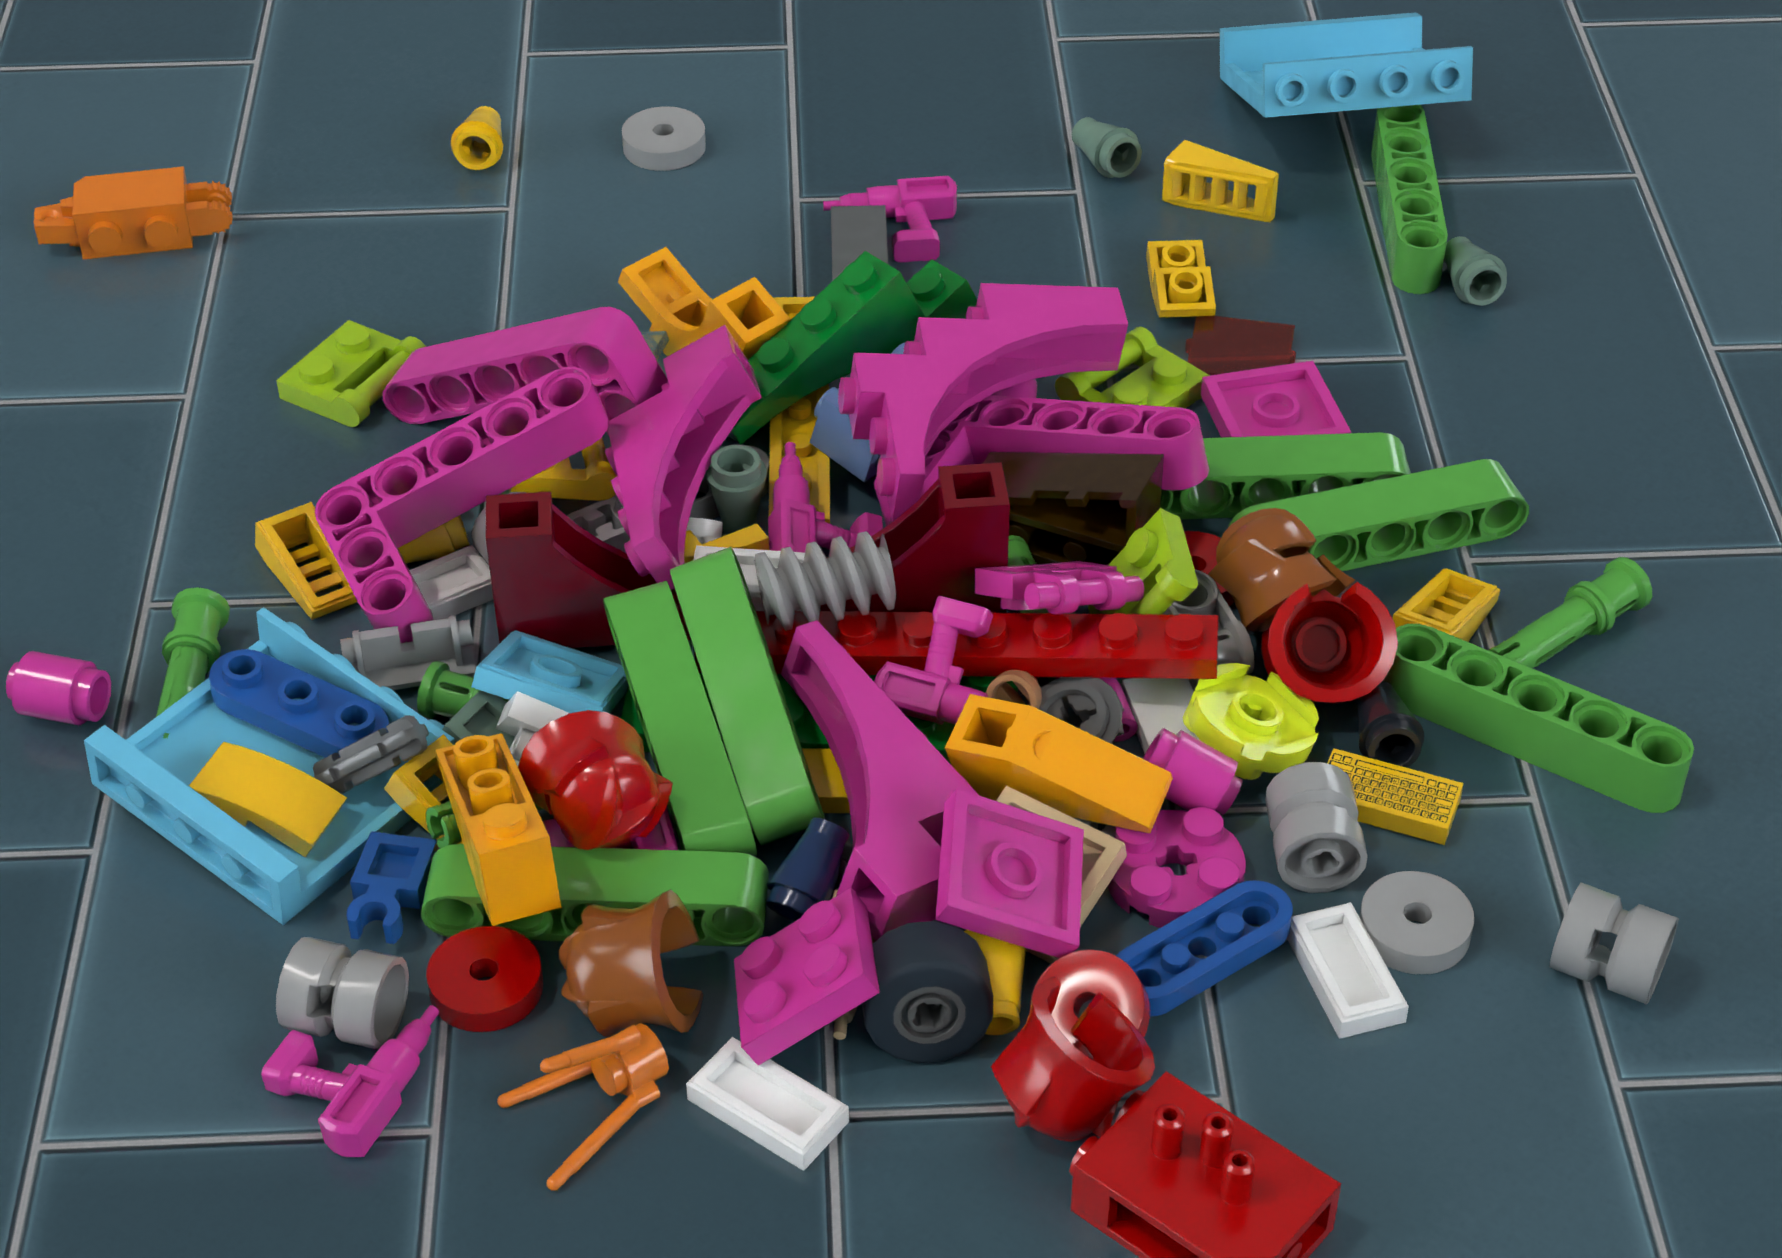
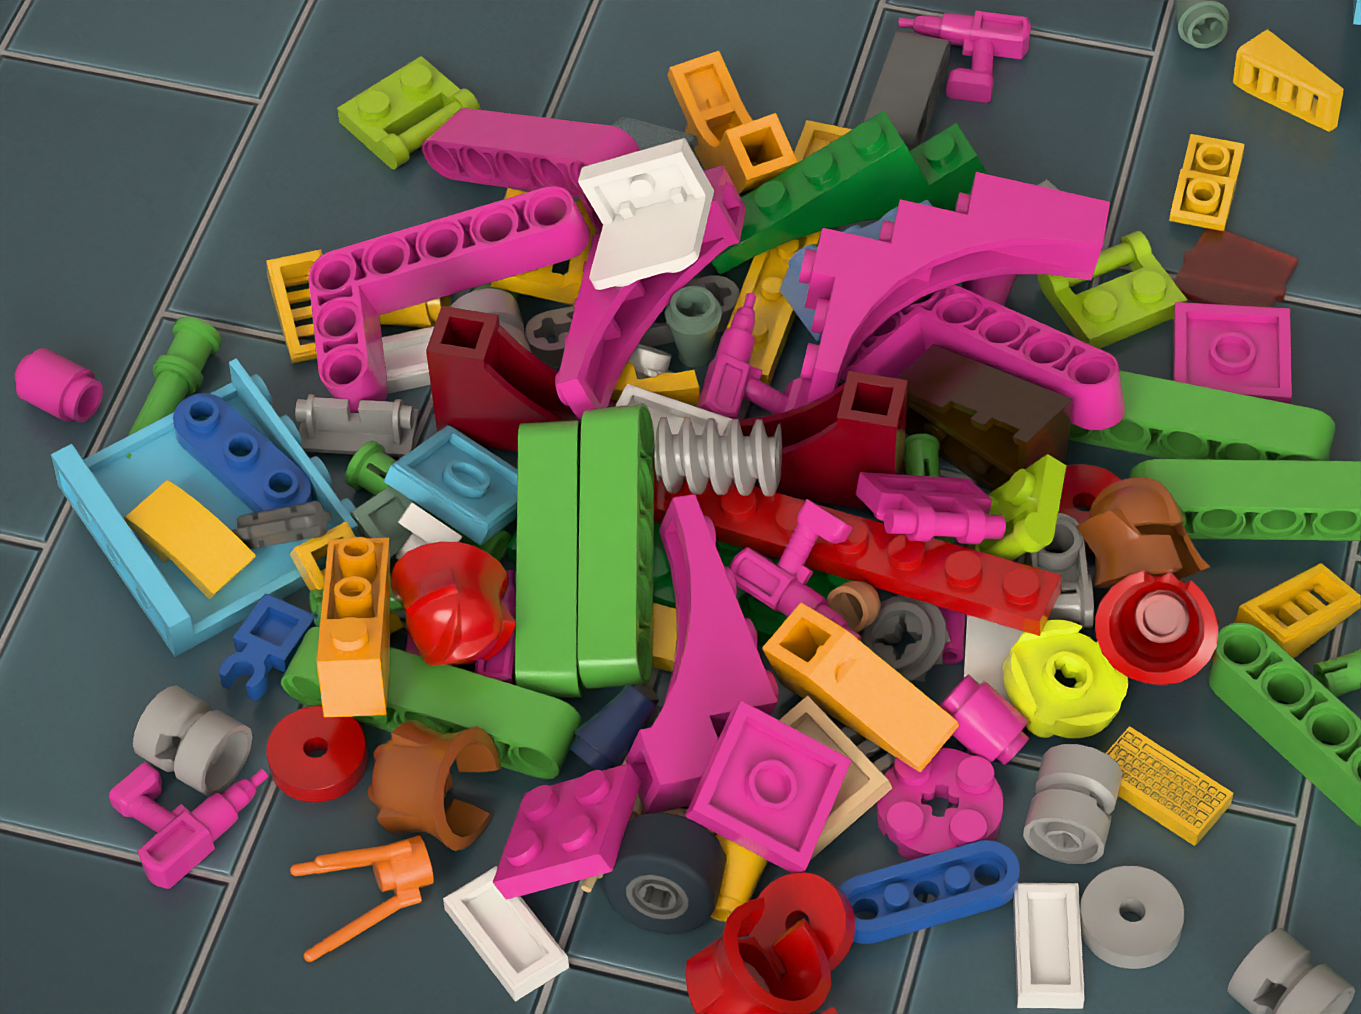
camera: 20 degrees right, 10 degrees up
(669, 371) = (650, 212): none -> white bracket
(1388, 727) = (1188, 718): black cone -> none

